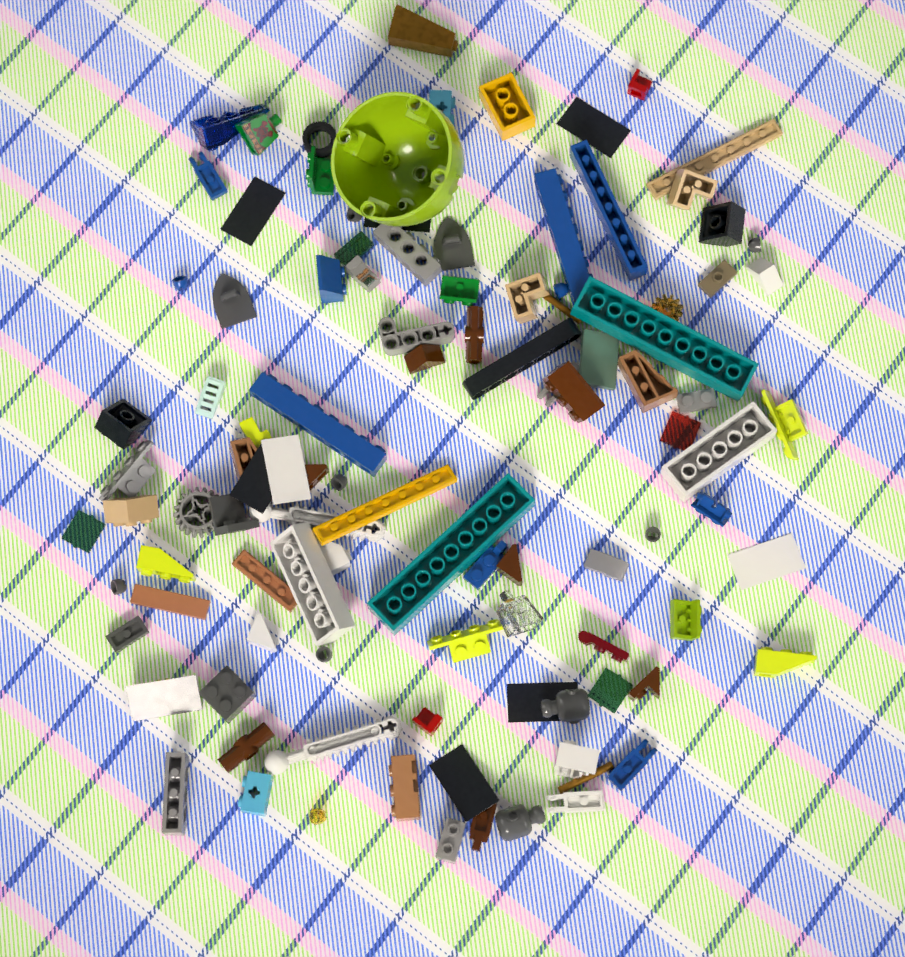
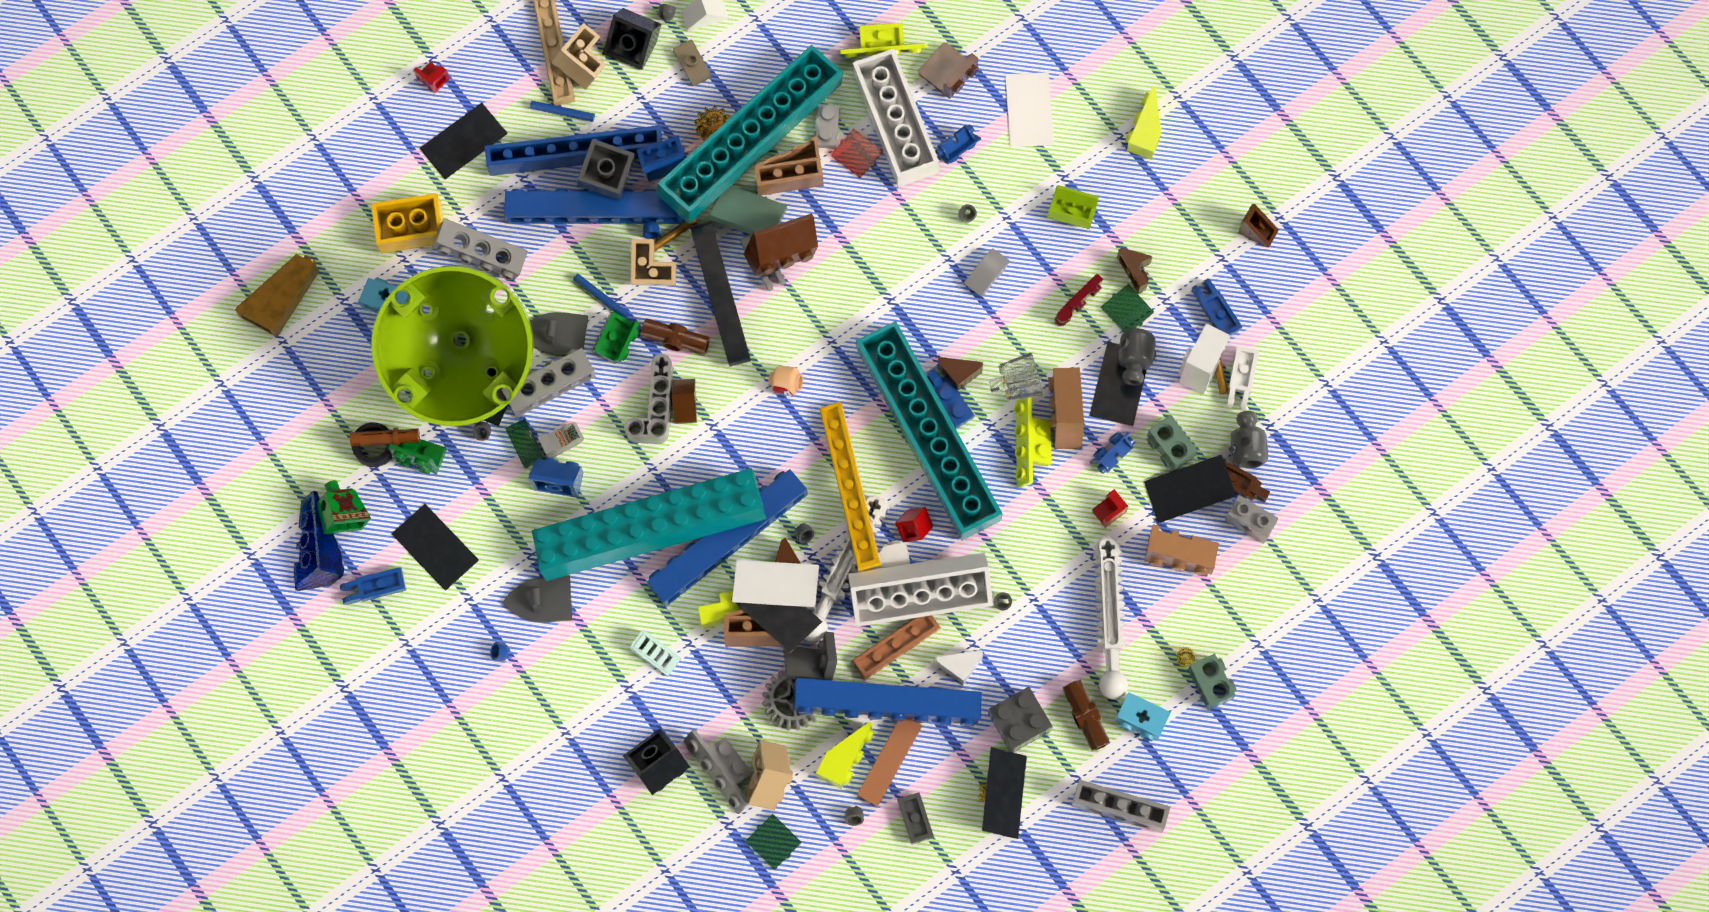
camera: 75 degrees left, 0 degrees up
(213, 583) = (887, 701): none -> blue brick
(297, 838) = (1206, 683): none -> sand green brick
(308, 359) = (648, 524): none -> teal brick
(323, 140) = (380, 437): none -> dark orange pin
(369, 566) = (914, 524): none -> red panel
(462, 431) = (786, 380): none -> light nougat head
(472, 705) = (1105, 455): none -> blue hinge
(492, 271) = (598, 294): none -> blue bar
(503, 134) = (491, 246): none -> light grey brick
(503, 759) = (1176, 440): none -> sand green brick
(505, 660) = (1067, 407): none -> medium nougat wedge
(592, 235) = (605, 169): none -> dark grey brick
(619, 274) = (661, 158): none -> blue bracket
(642, 192) = (559, 110): none -> blue bar
(717, 781) = (1258, 227): none -> reddish brown slope
(778, 483) = (948, 69): none -> bracket

